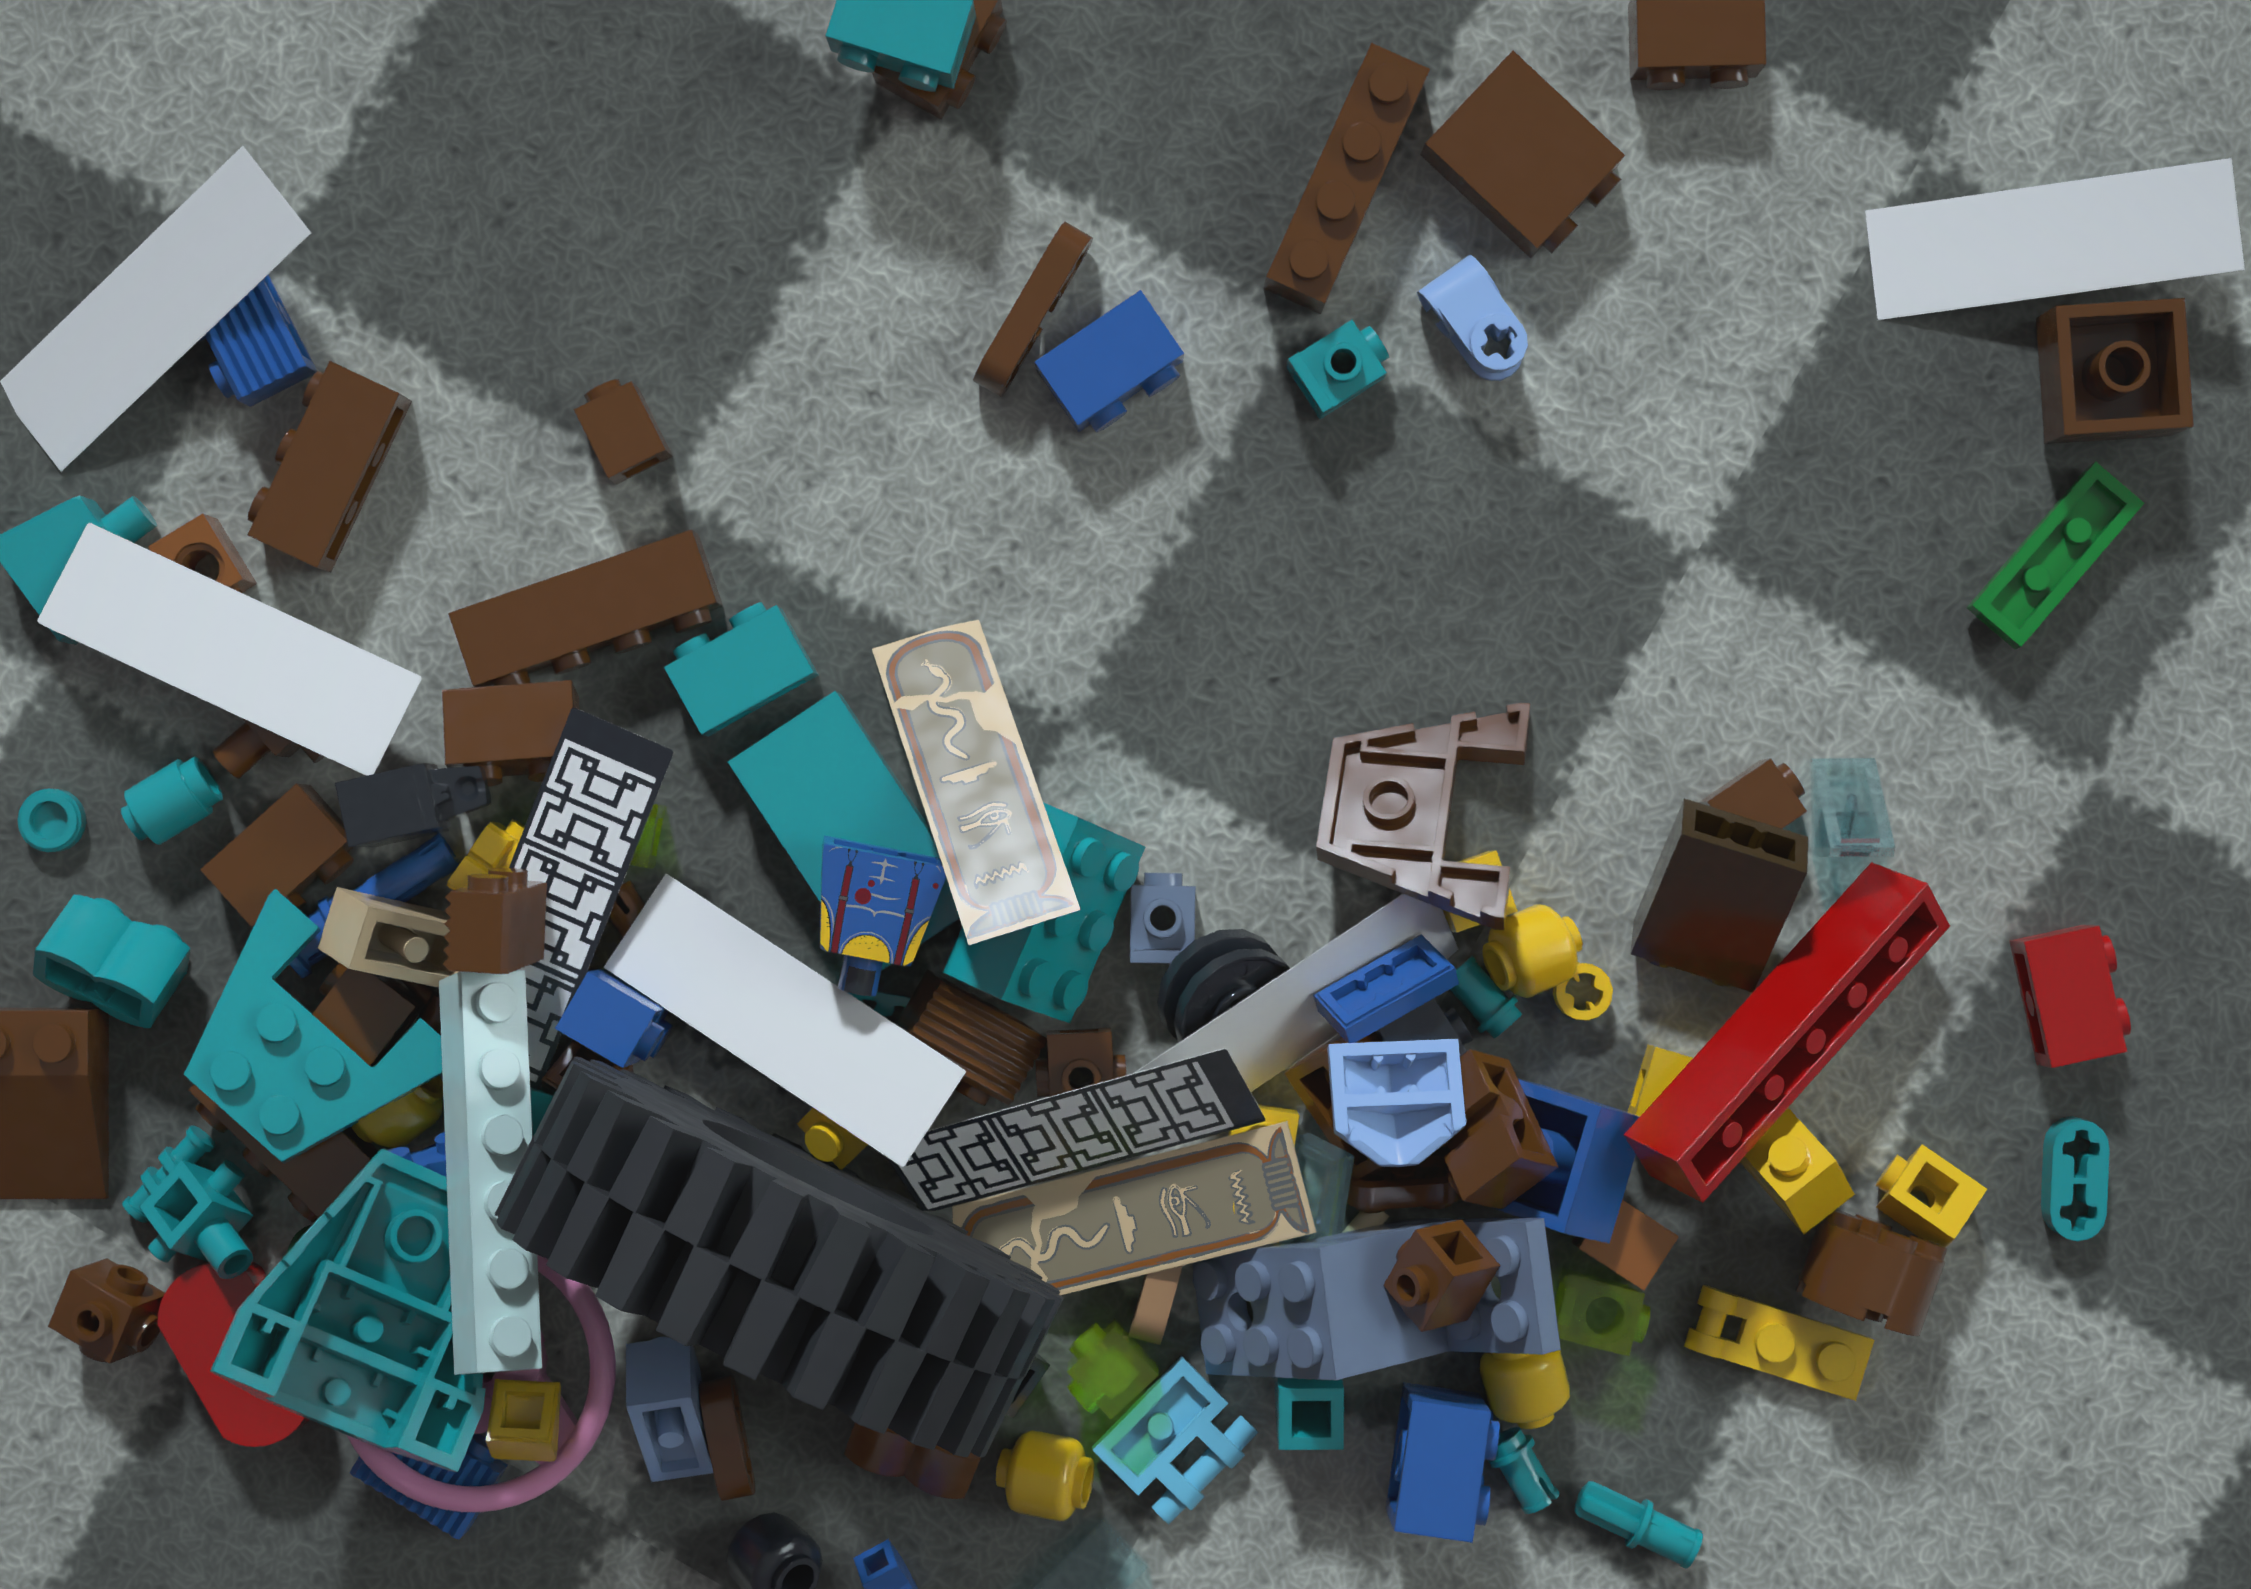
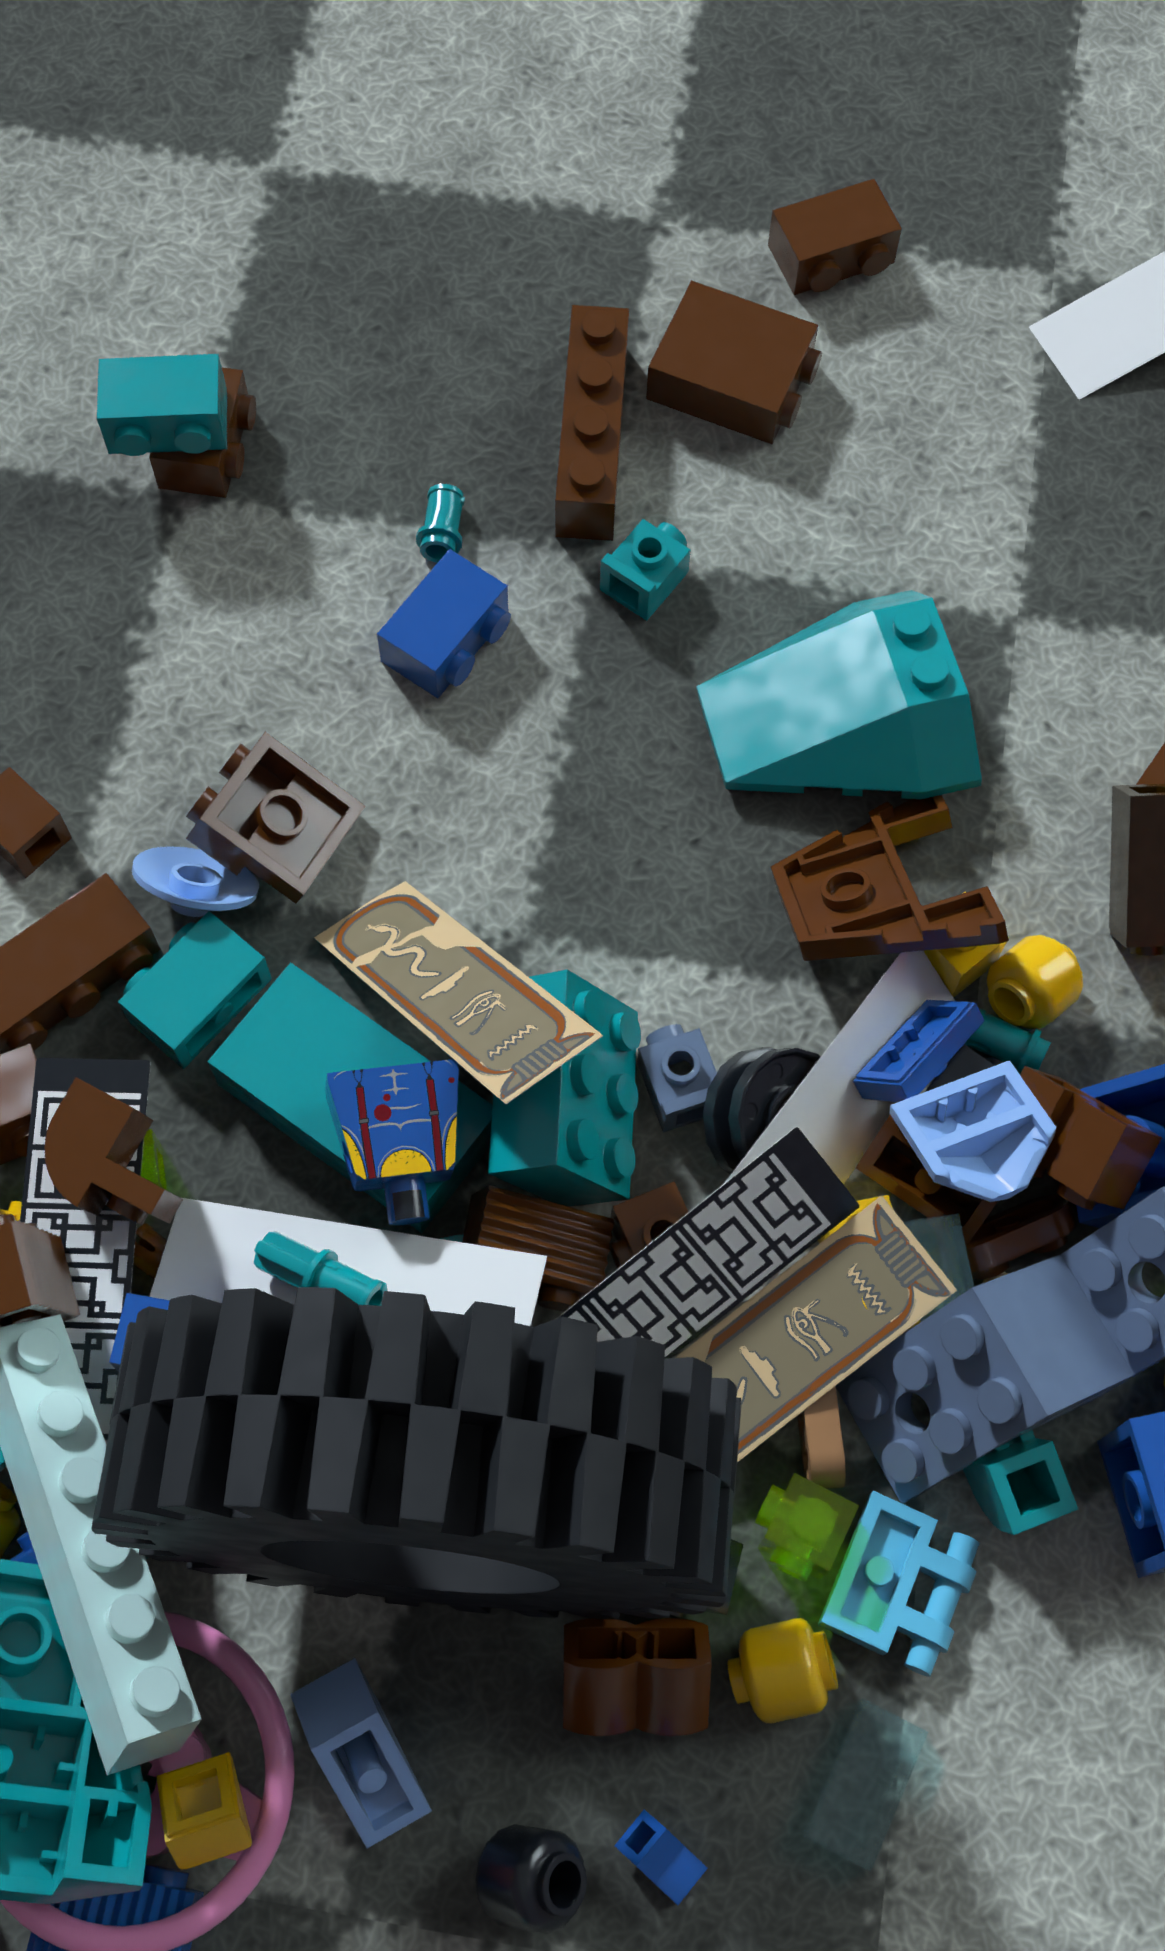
camera: 25 degrees left, 20 degrees down
(591, 832) = (89, 1154): none -> reddish brown brick
(726, 1438) = (432, 1762): reddish brown beam -> none
(762, 1010) = (306, 1267): none -> teal axle
(774, 559) = (193, 880): none -> light blue dish
(870, 520) = (273, 817): none -> plate
(1037, 297) = (360, 598): reddish brown beam -> none
(1149, 239) = (441, 522): none -> teal pin
(1441, 1275) = (1099, 1282): reddish brown brick -> none
(1472, 310) = (748, 489): light blue piece -> none
(1474, 595) = (849, 707): none -> teal wedge
(1598, 981) = (1107, 993): yellow bush -> none

